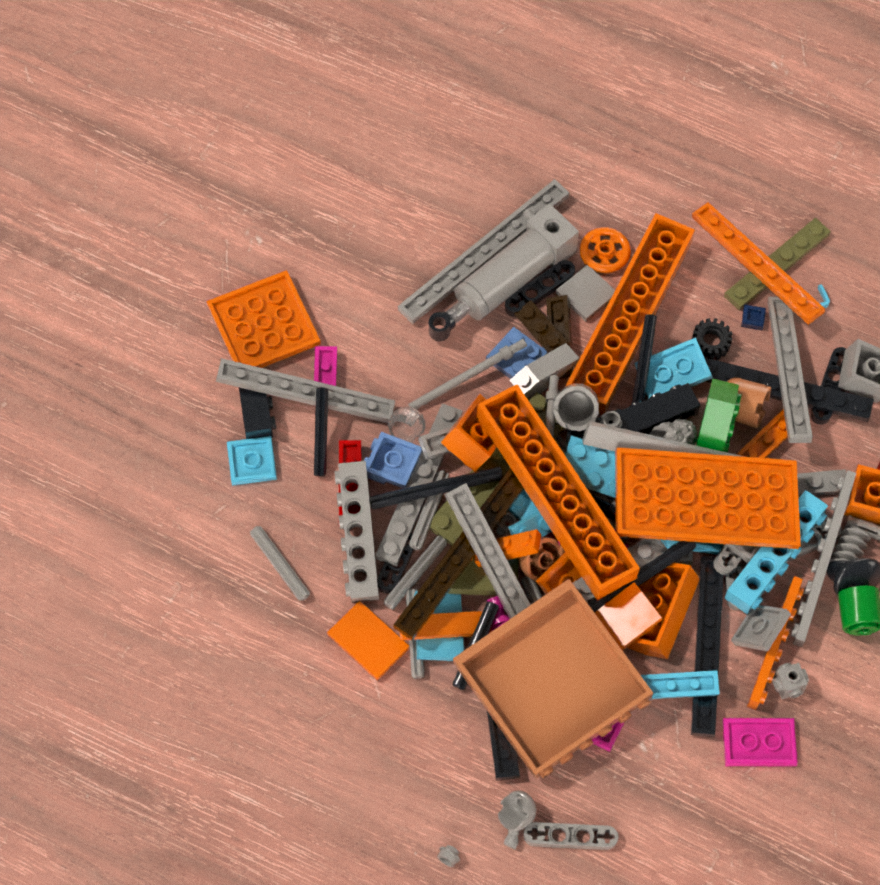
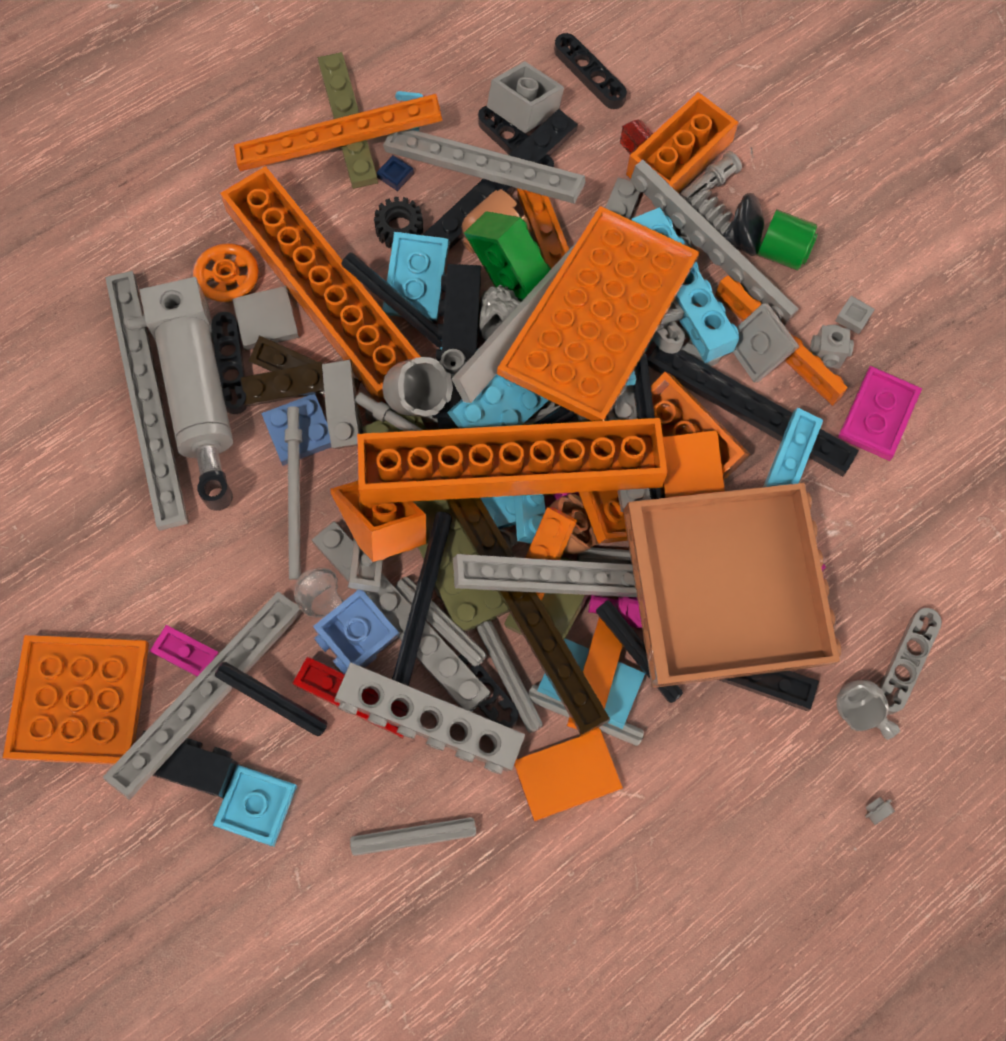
camera: 65 degrees left, 5 degrees up
(831, 689) = (854, 315): none -> light grey plate

